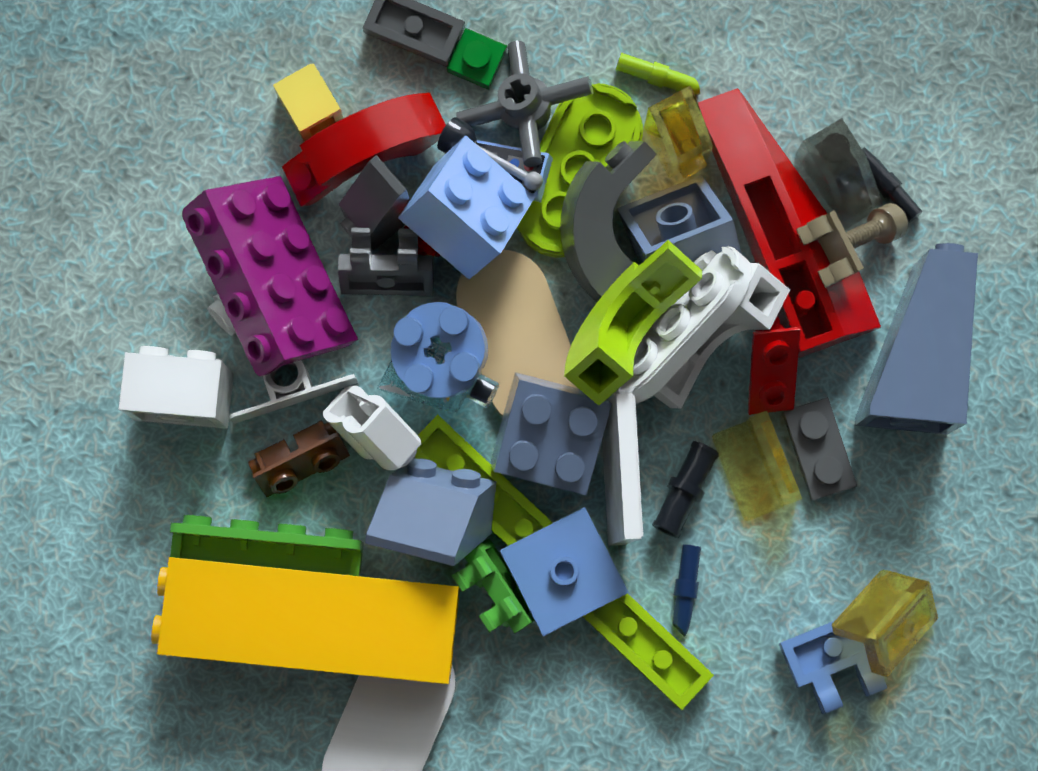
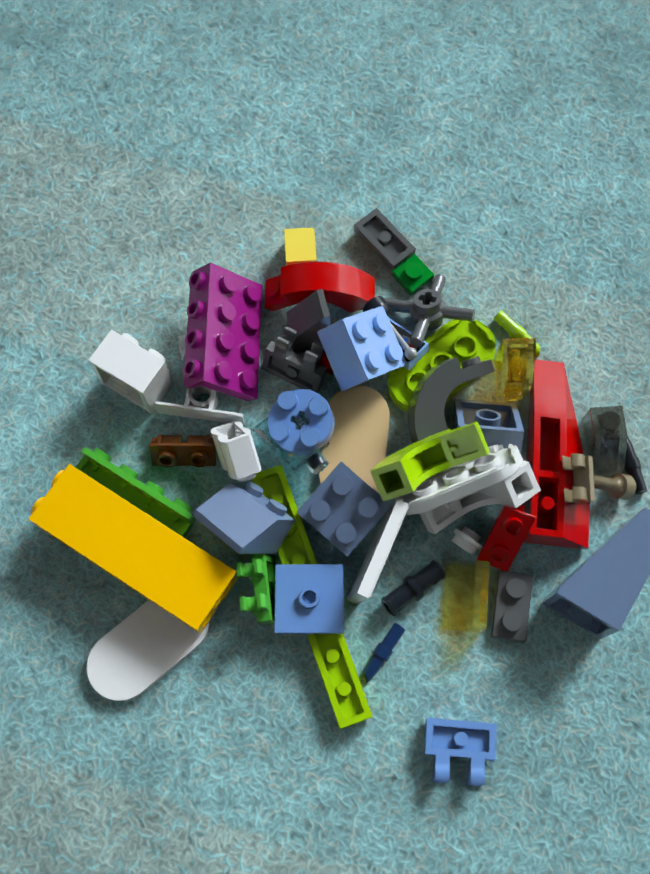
camera: 25 degrees right, 10 degrees down
(724, 394) = (467, 540): none -> white plate
(888, 618) = (507, 738): clear yellow panel -> none

